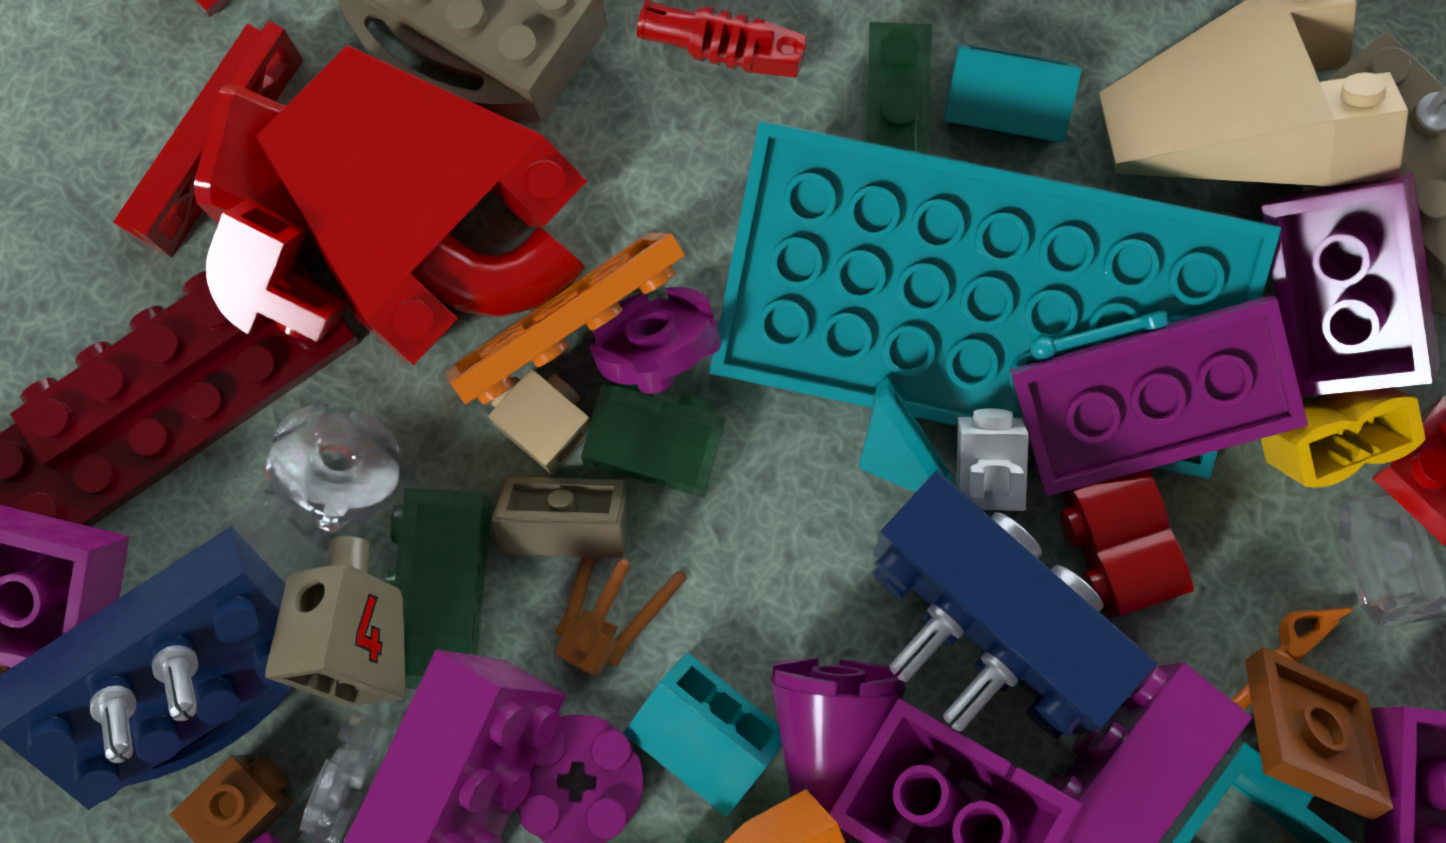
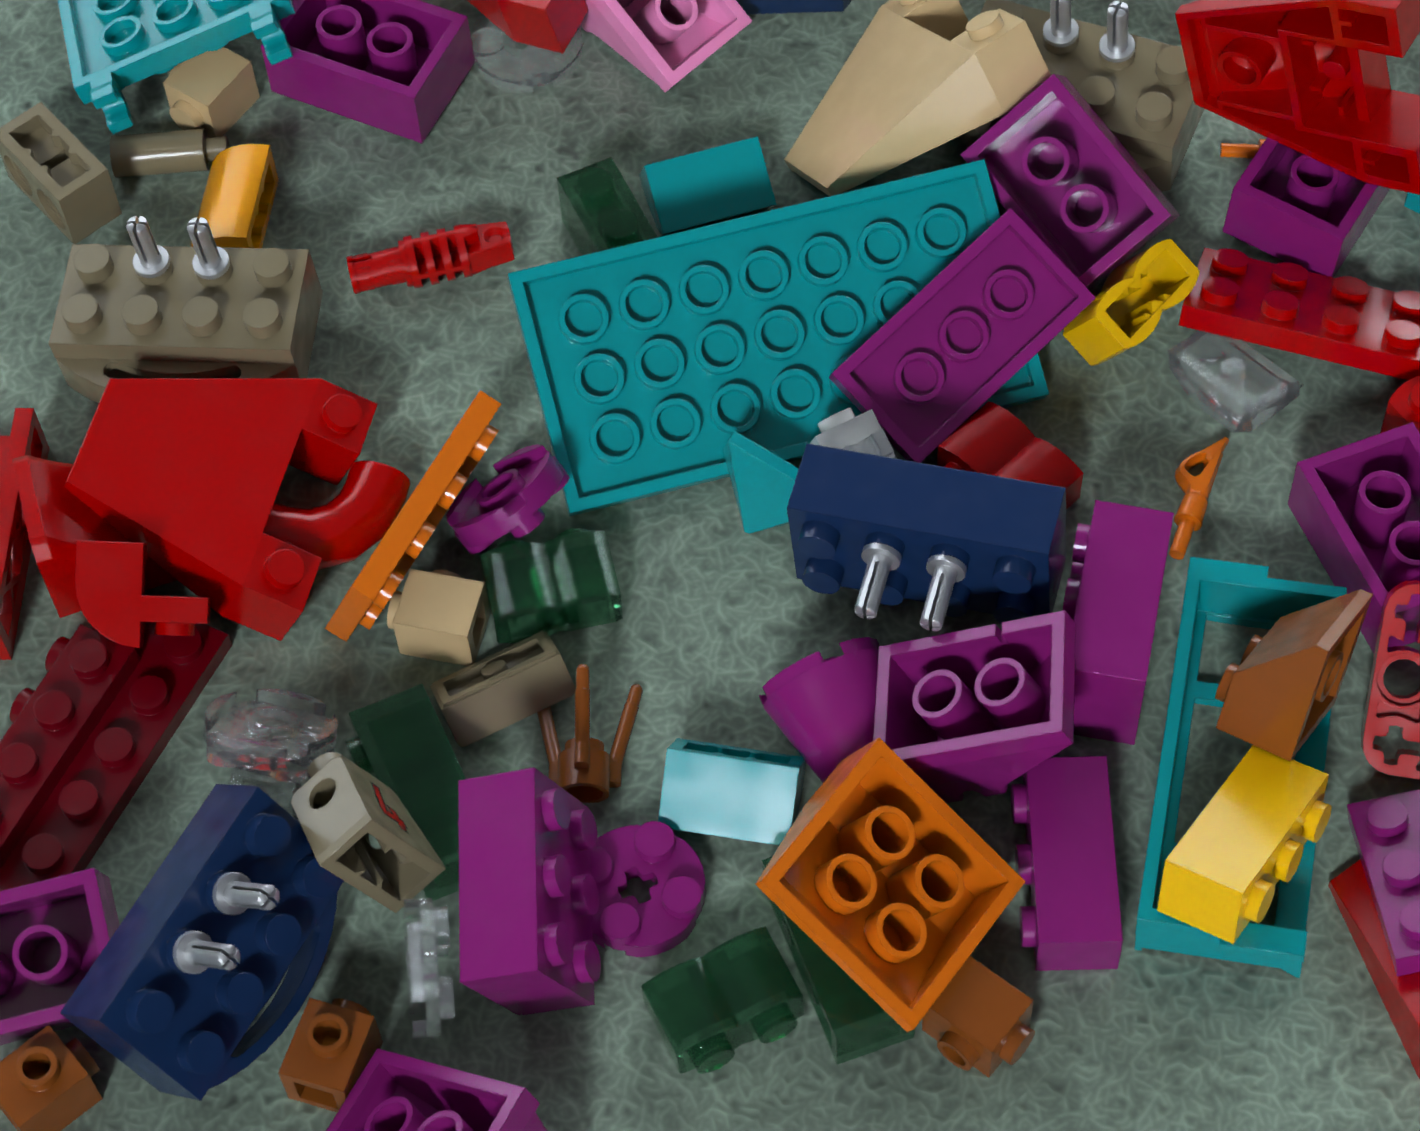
camera: 25 degrees left, 20 degrees down
(1044, 347) = (848, 344): teal hinge -> none
(1317, 734) = (1245, 524): dark orange plate -> none

